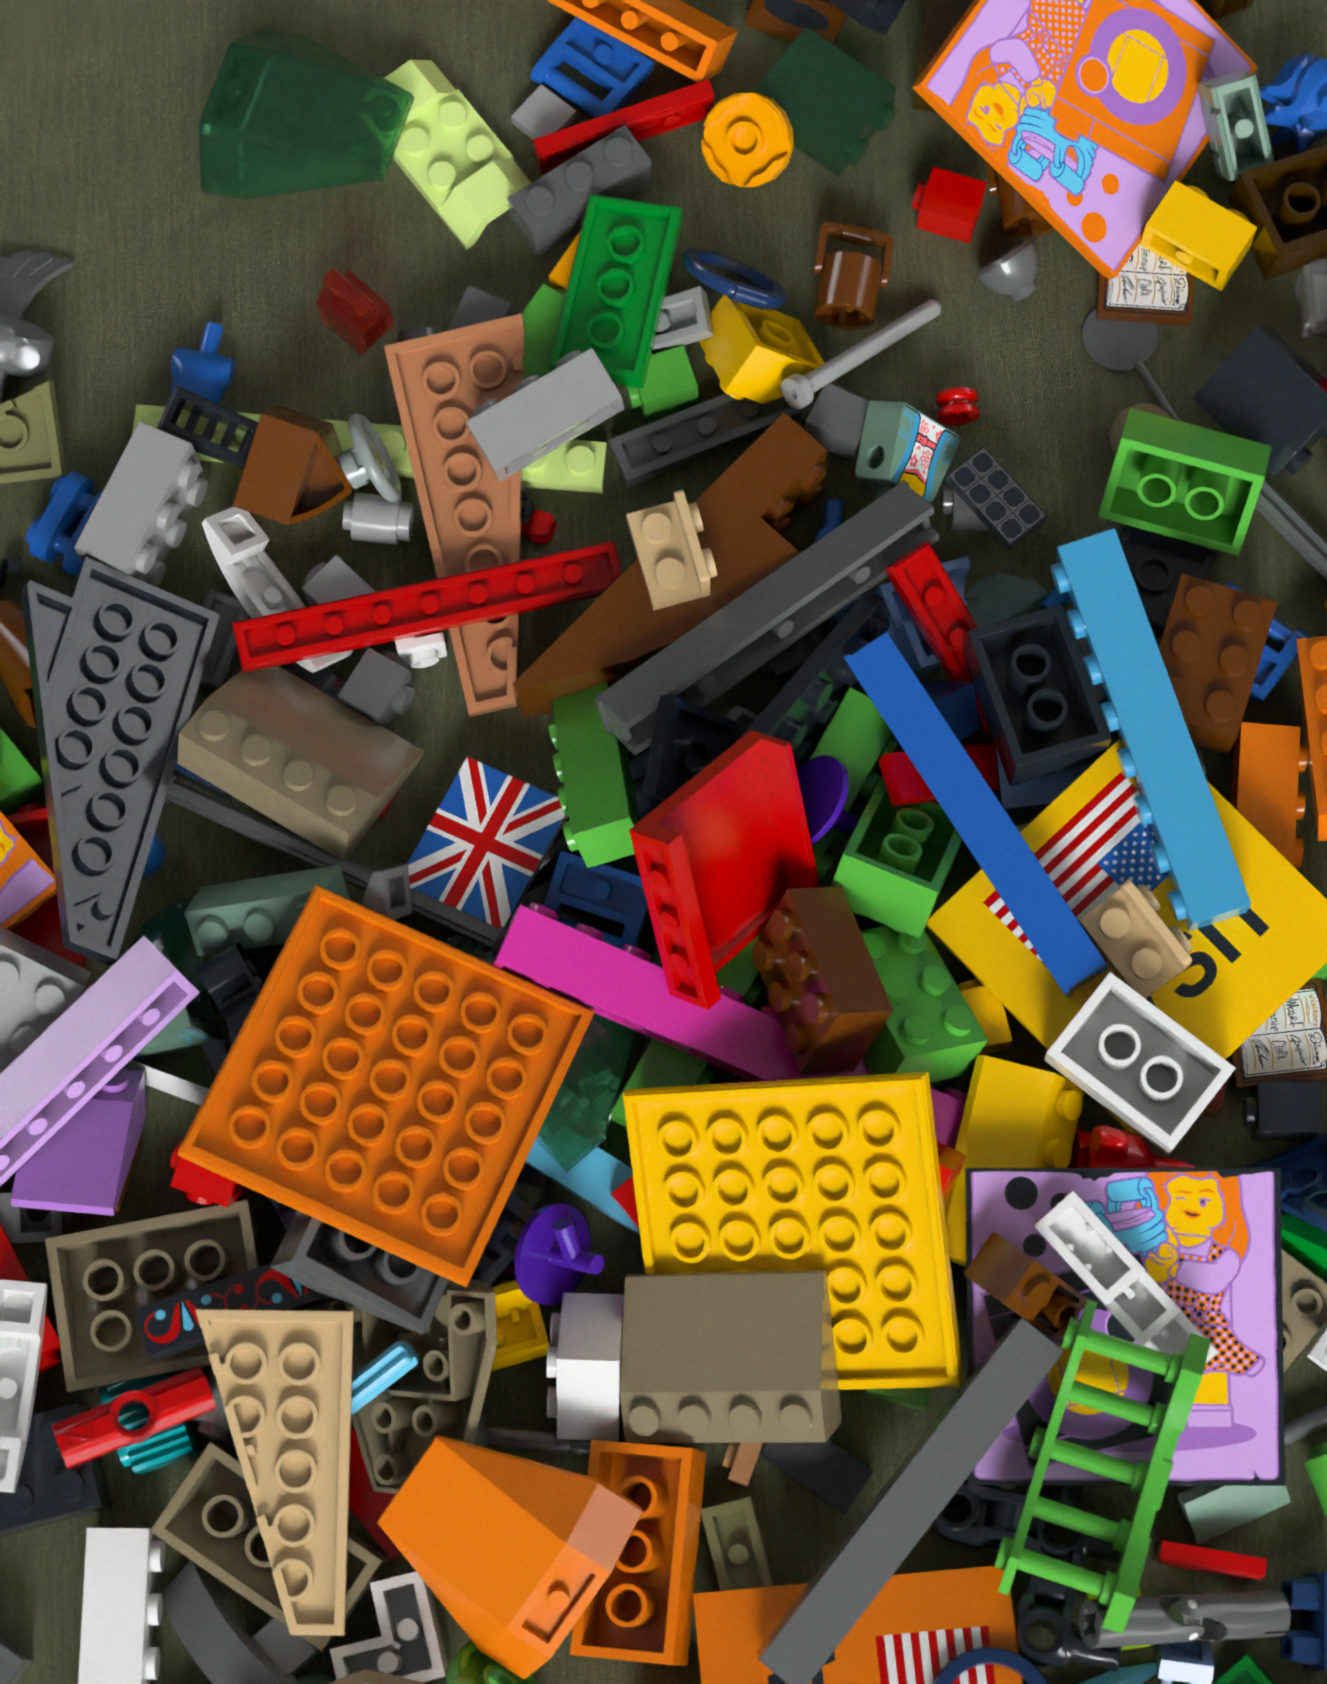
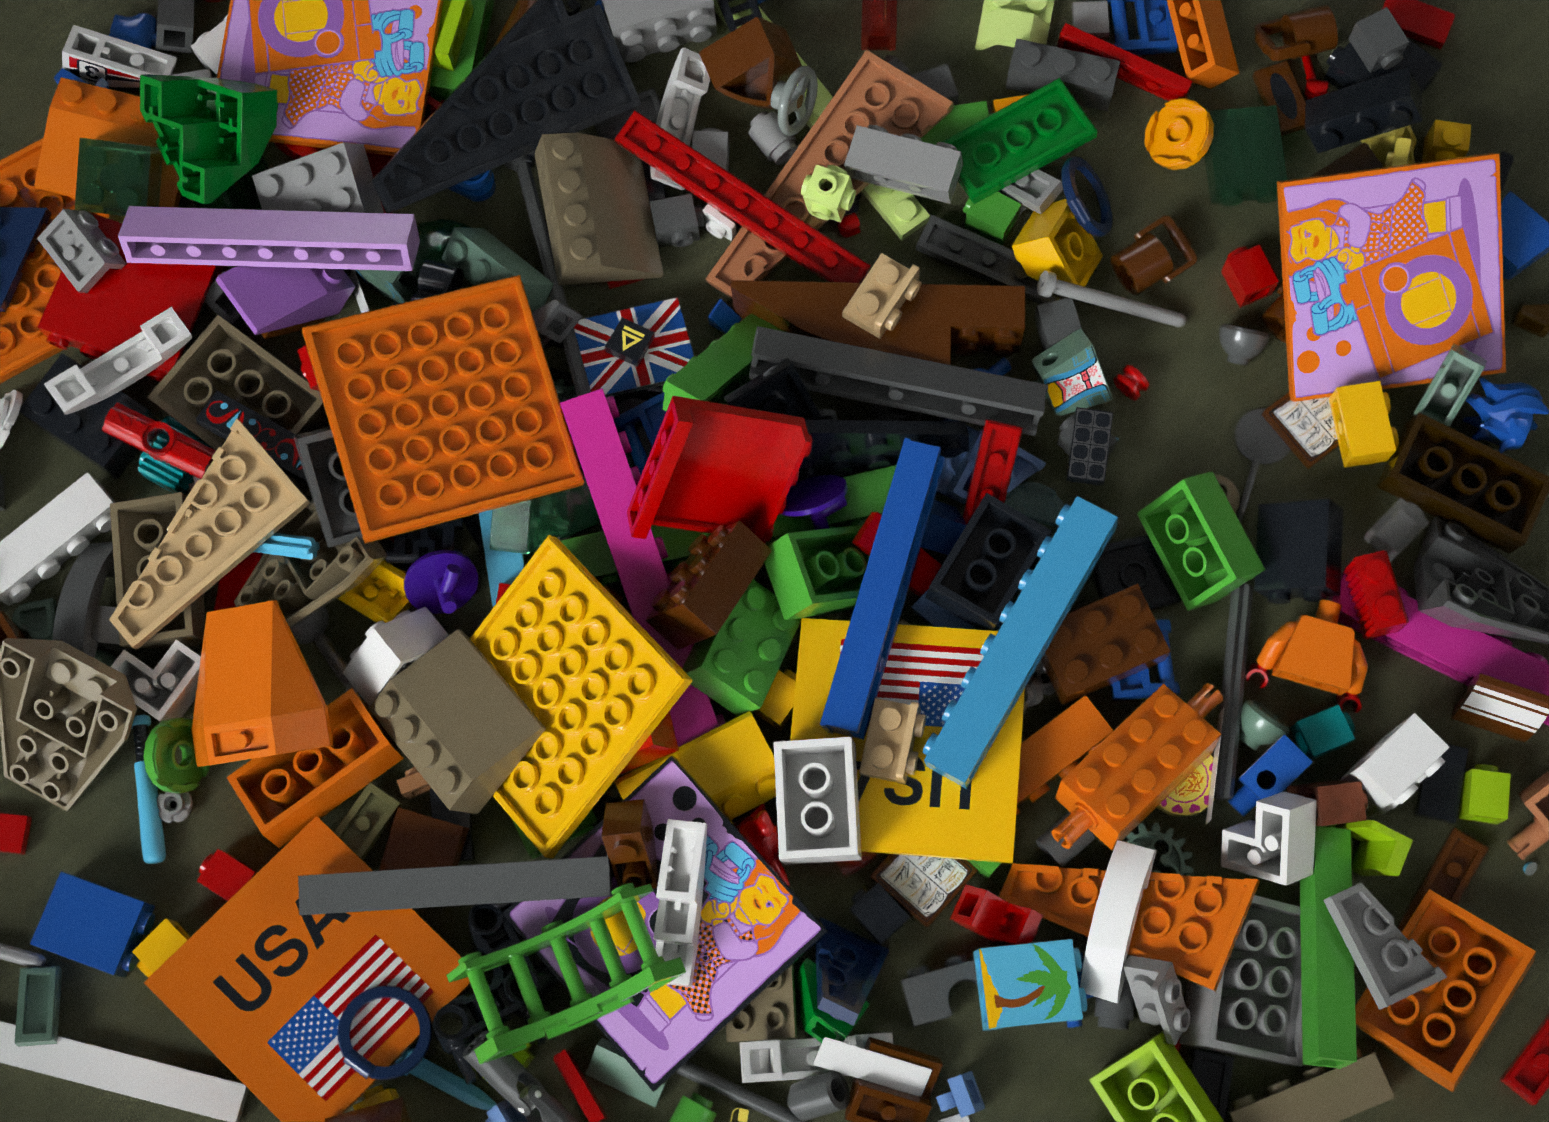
camera: 50 degrees right, 0 degrees up
(477, 842) = (629, 342): none -> black tile
(510, 528) = (830, 203): none -> yellowish green brick
(524, 733) = (723, 317): none -> blue piece
(815, 1511) = (422, 842): none -> reddish brown tile

